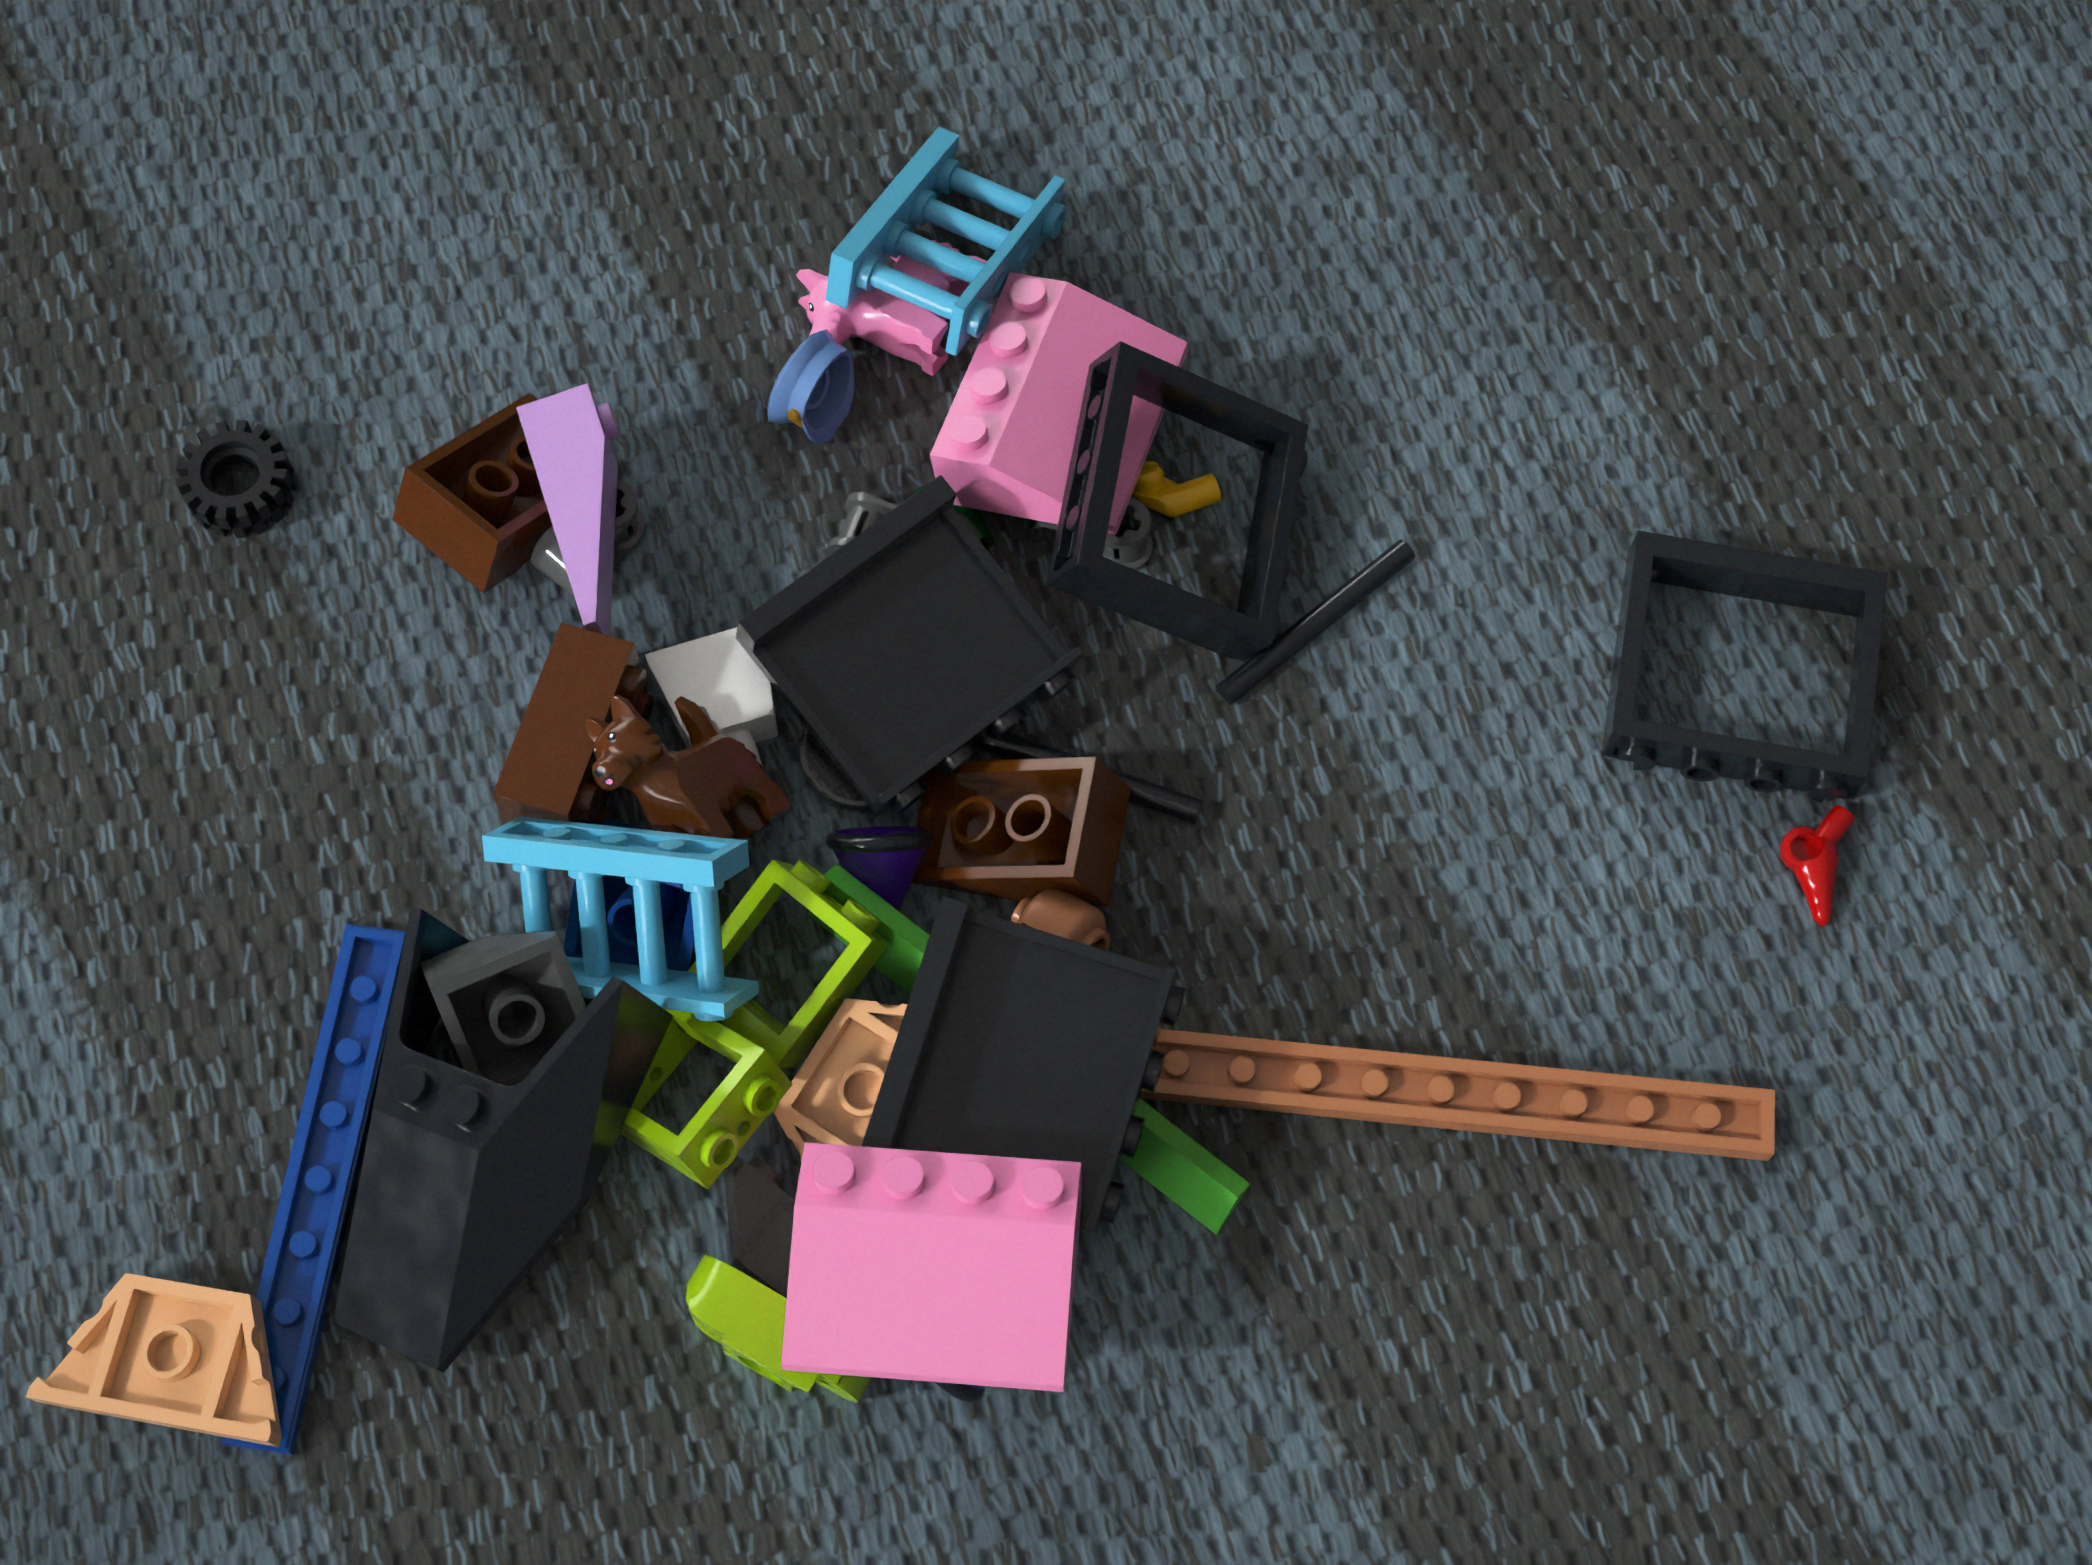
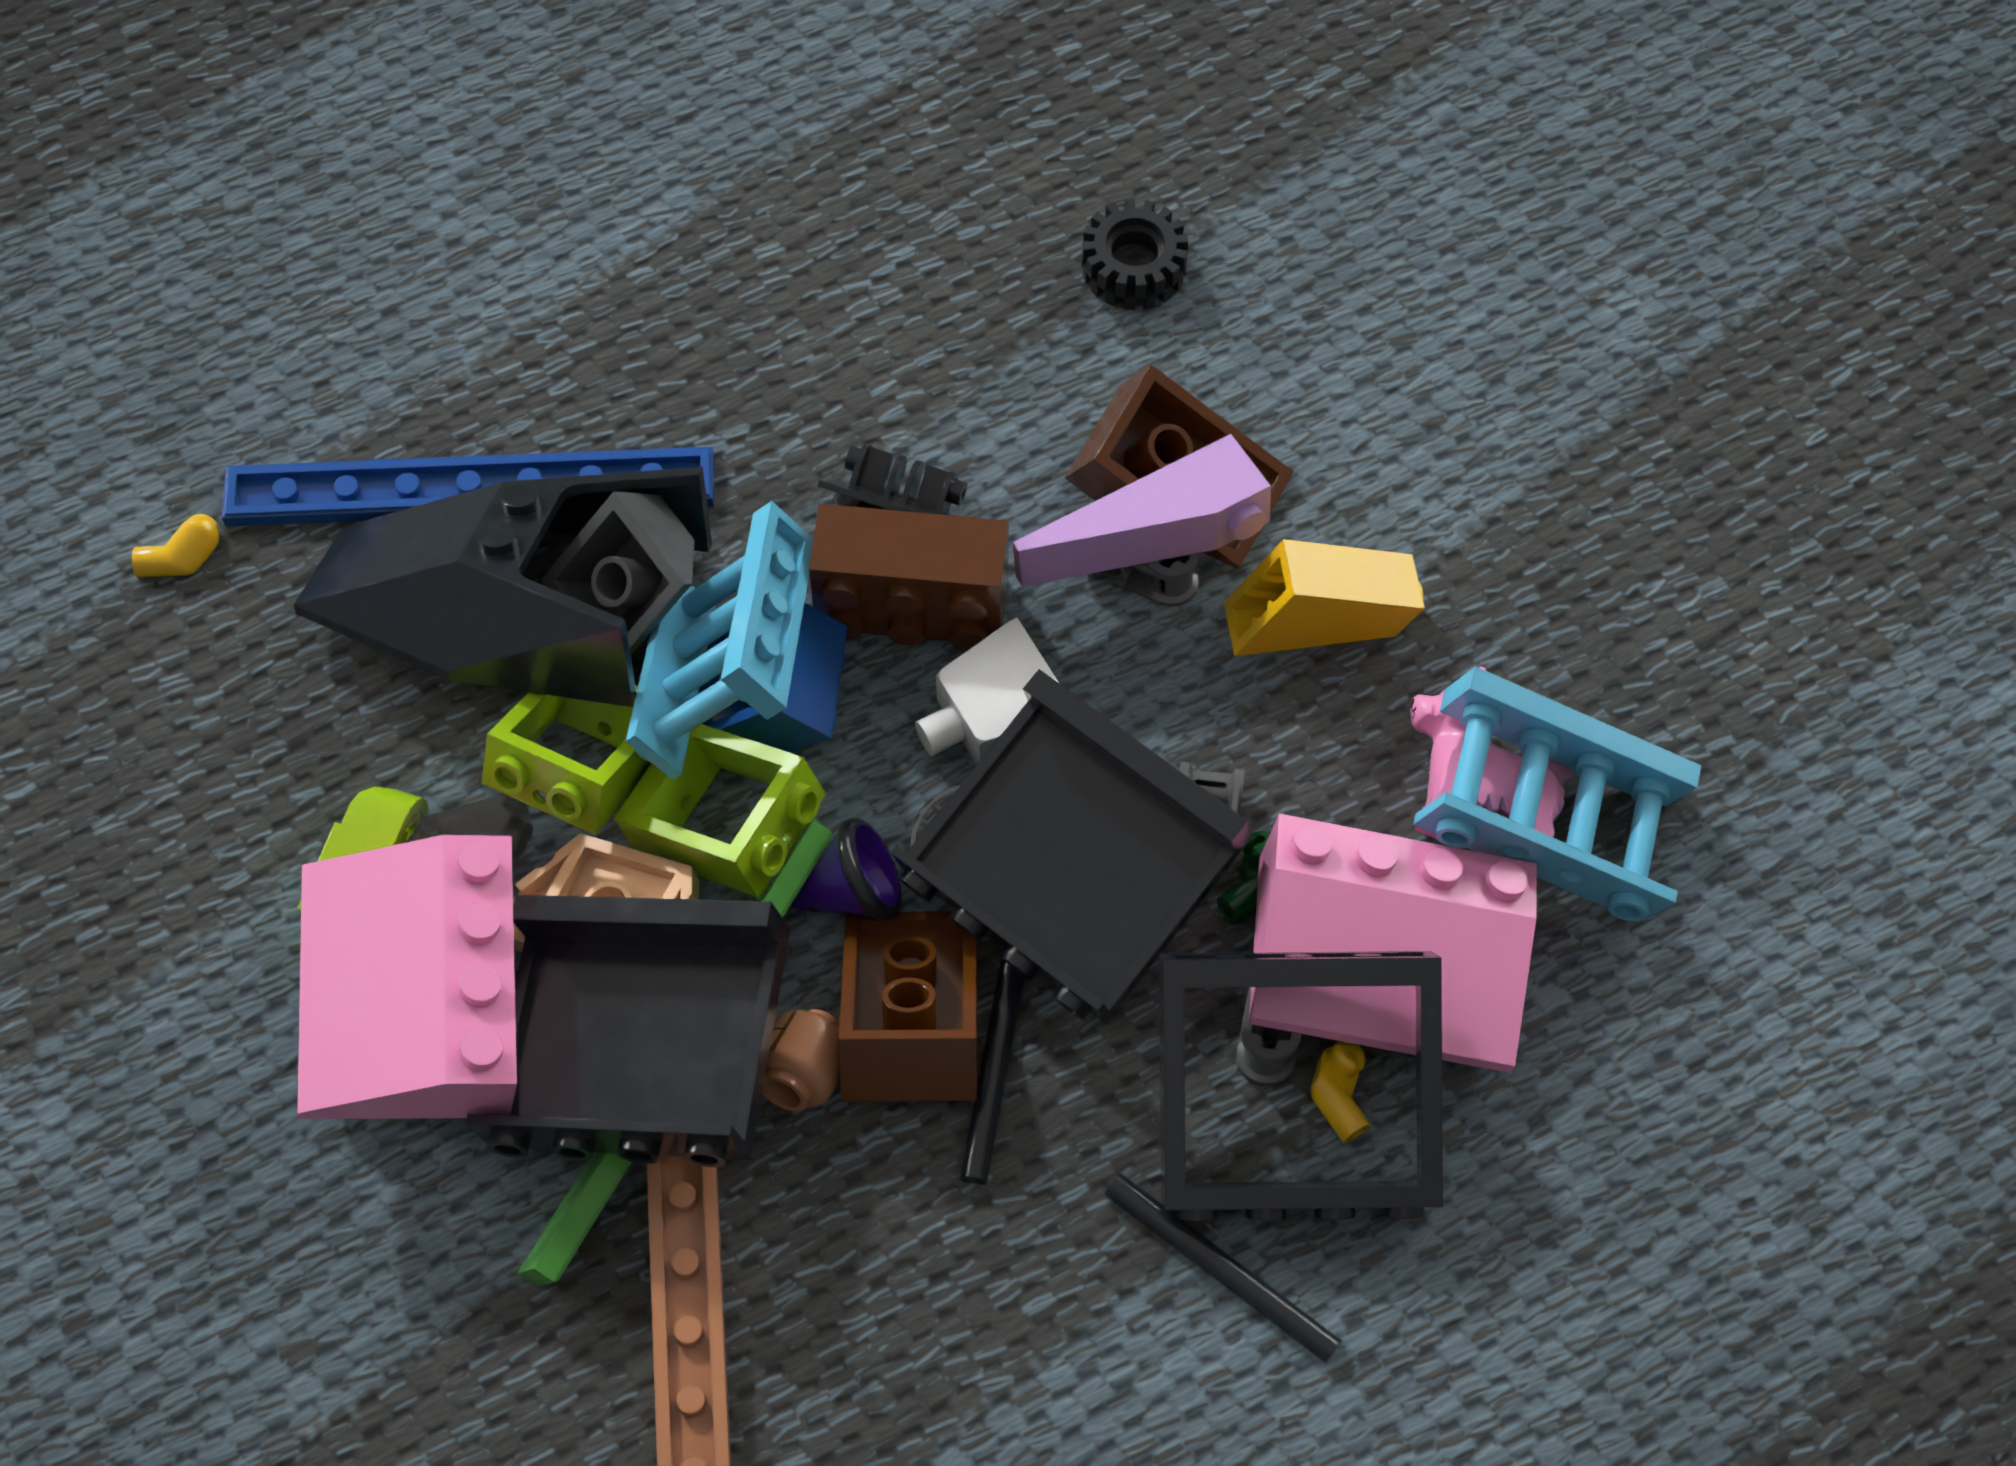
camera: 80 degrees right, 5 degrees down
(171, 1360) = (288, 412): light nougat wing -> none
(322, 1501) = (182, 553): none -> yellow arm
(466, 766) = (870, 475): none -> black hinge
(686, 395) = (1322, 597): none -> yellow slope
(686, 788) = (867, 674): reddish brown animal -> none
(814, 387) = (1354, 710): medium blue piece -> none

